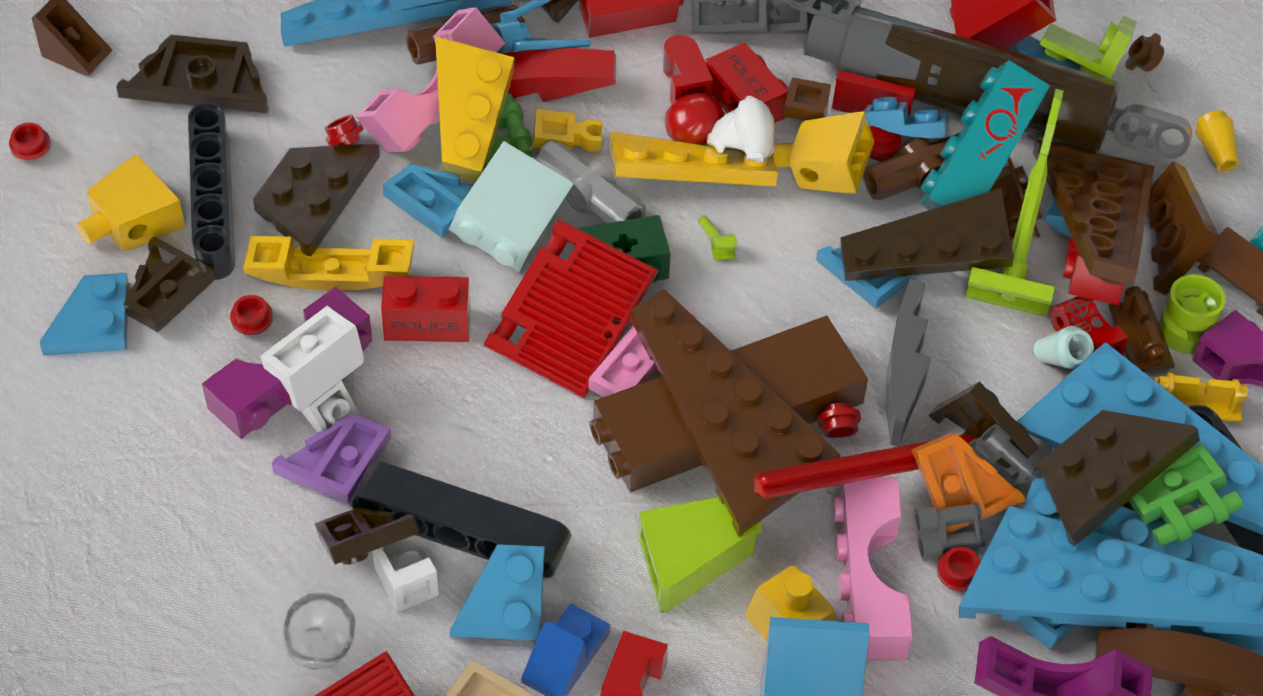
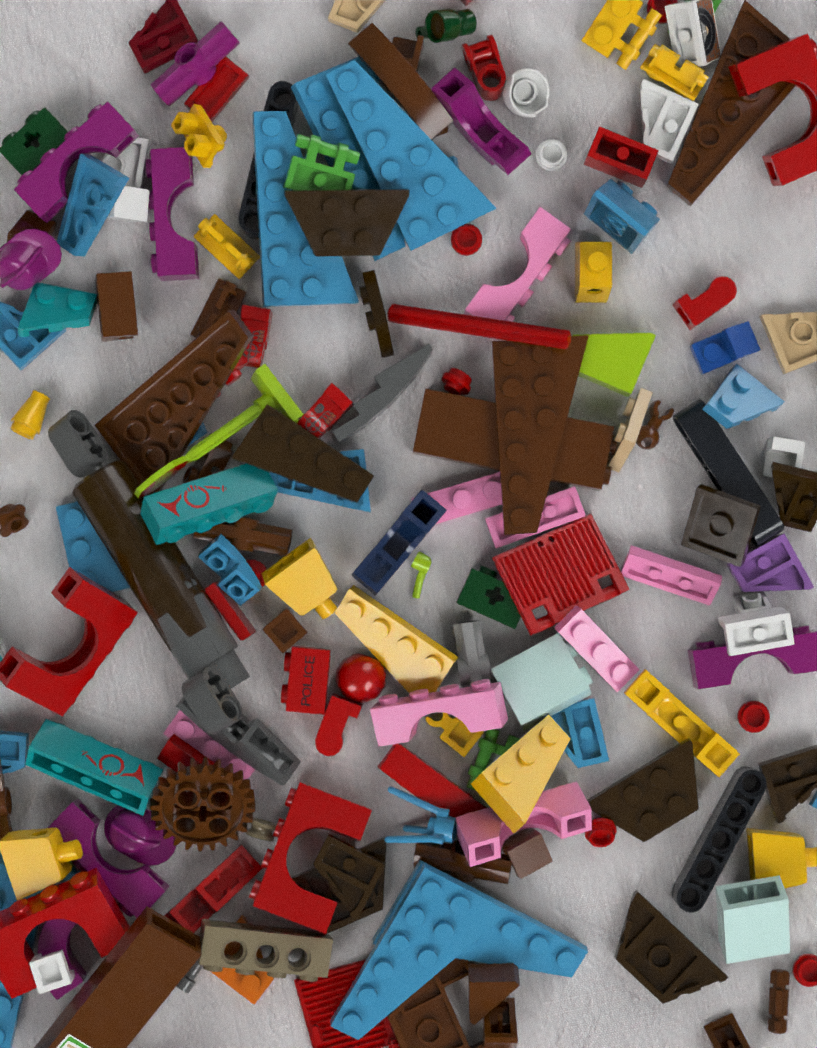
camera: 140 degrees left, 35 degrees up
(45, 103) = (778, 1001): none -> reddish brown axle
(126, 129) = (753, 919): none -> light aqua brick
(408, 65) = (527, 852): none -> reddish brown panel
(426, 308) = (648, 639): red brick -> none
(430, 449) = (720, 525): none -> dark brown plate
(448, 384) = (671, 575): none -> bright pink plate
(483, 262) = (596, 648): none -> bright pink plate
(565, 133) = (477, 706): none -> bright pink arch
(584, 505) = (649, 432): none -> reddish brown arm
(617, 506) = (628, 432): none -> tan wing
(745, 130) = (350, 629): white hair -> none
(746, 311) = (469, 497): none -> bright pink plate
(765, 228) = (399, 542): none -> dark blue arch
(932, 529) = (455, 264): dark grey piece -> none
(947, 310) = (326, 411): none -> red leg
(961, 477) = (425, 282): orange wing -> none
(995, 445) = (391, 285): dark grey piece -> none
(1064, 348) = (284, 327): light aqua cone -> none
(1093, 58) = (54, 541): lime bracket -> none
(1180, 225) = (128, 360): reddish brown wing -> none
(1191, 311) = (181, 297): lime wheel -> none

